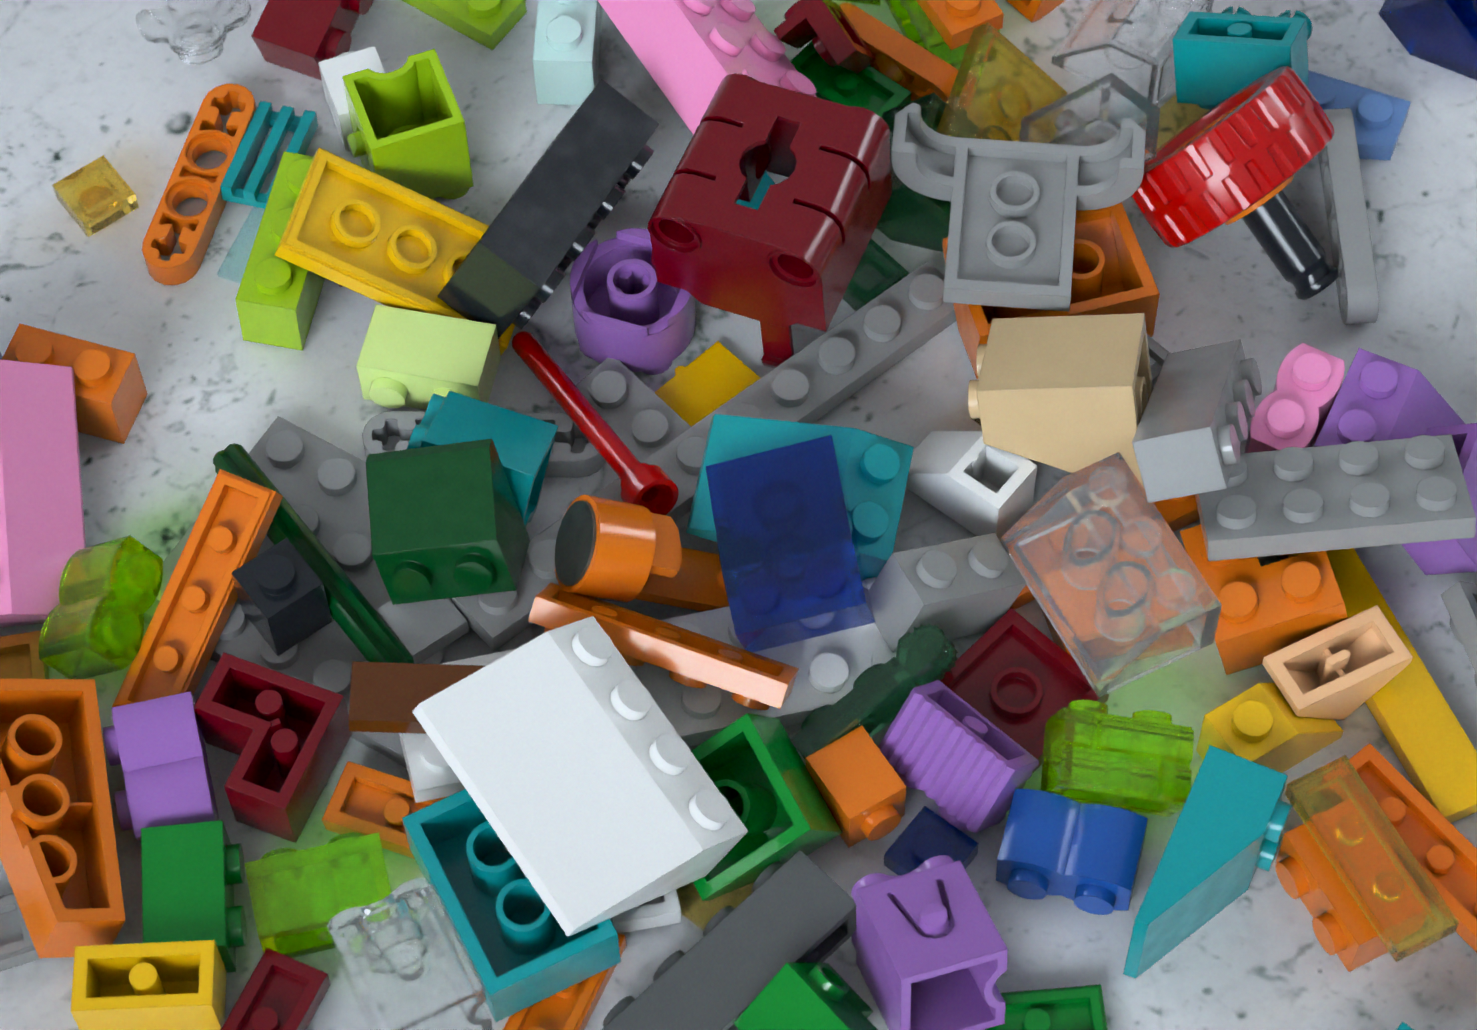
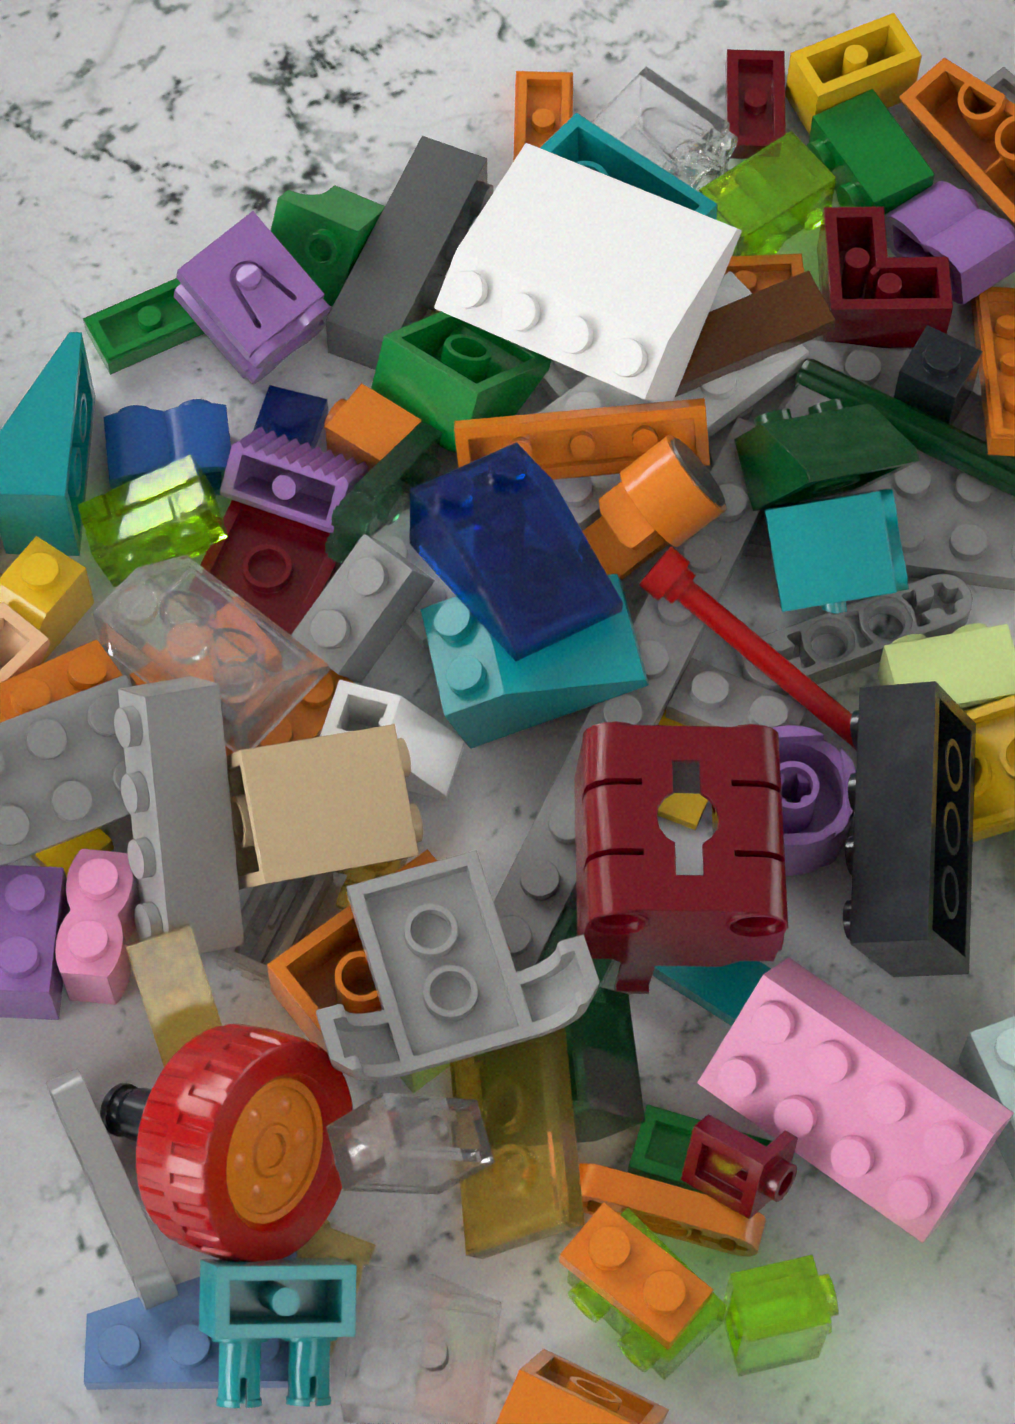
camera: 155 degrees right, 5 degrees up
(1243, 296) = (173, 988): none -> clear yellow tile

